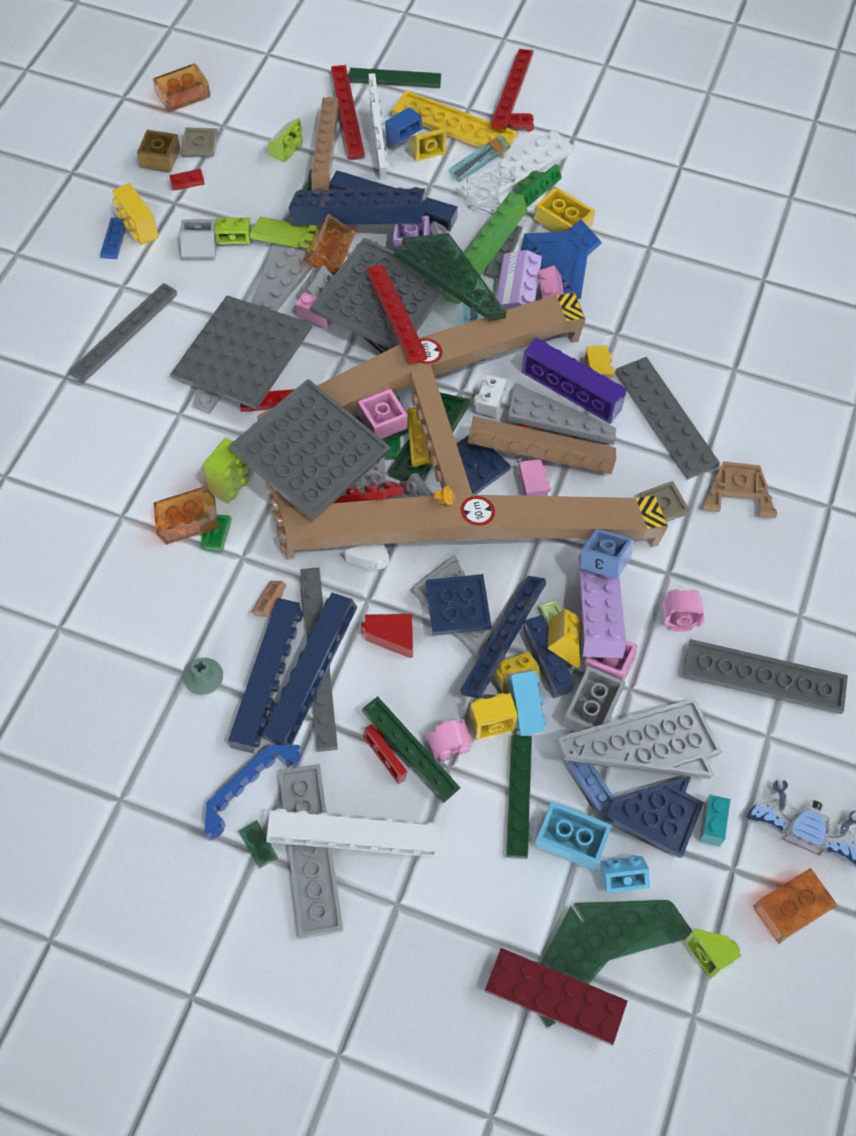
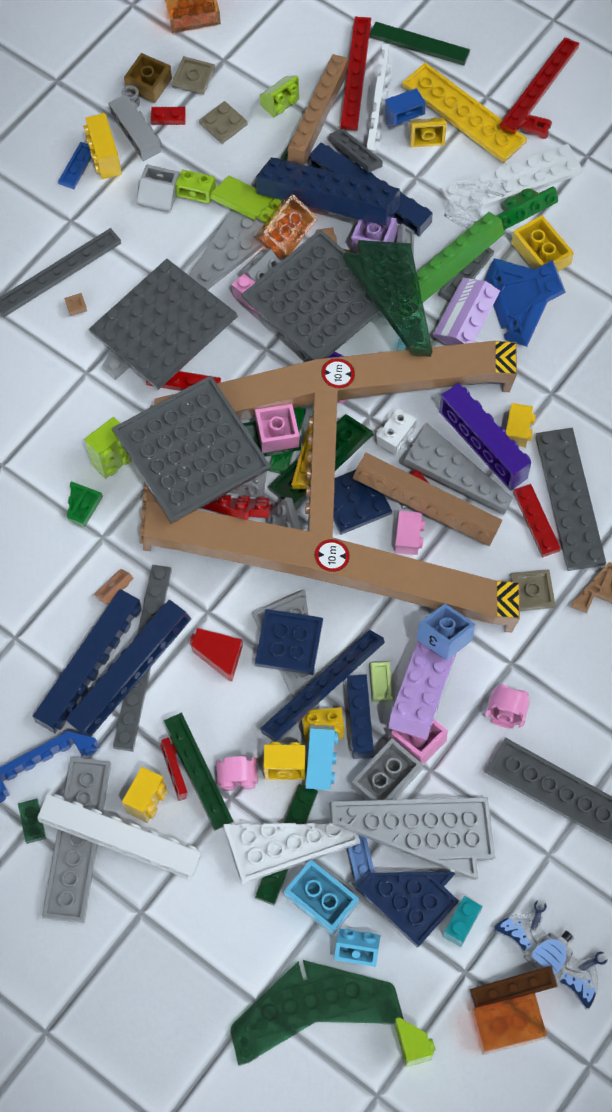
camera: 20 degrees right, 5 degrees up
(150, 355) = (75, 304): none -> medium nougat plate
(158, 193) = (133, 124): none -> light grey hinge
(185, 515) = (58, 482): clear orange brick -> none
(203, 676) = (30, 646): sand green piece -> none
(239, 175) = (223, 122): none -> dark tan plate
(366, 785) = (145, 795): none -> yellow brick
(368, 556) = (220, 570): white slope -> none
(370, 171) = (355, 150): none -> dark grey plate
(396, 314) = (322, 324): red plate -> none
(445, 496) = (303, 533): light orange plate -> none
(479, 158) = (476, 160): clear light blue tile -> none
(516, 798) = (279, 846): none -> white wing
(550, 282) = (499, 324): bright pink brick -> none
(556, 996) = (254, 1039): dark red plate -> none
(565, 637) = (379, 703): yellow slope -> none
(644, 443) = (536, 520): none -> red plate
(787, 868) = (514, 987): none -> reddish brown tile

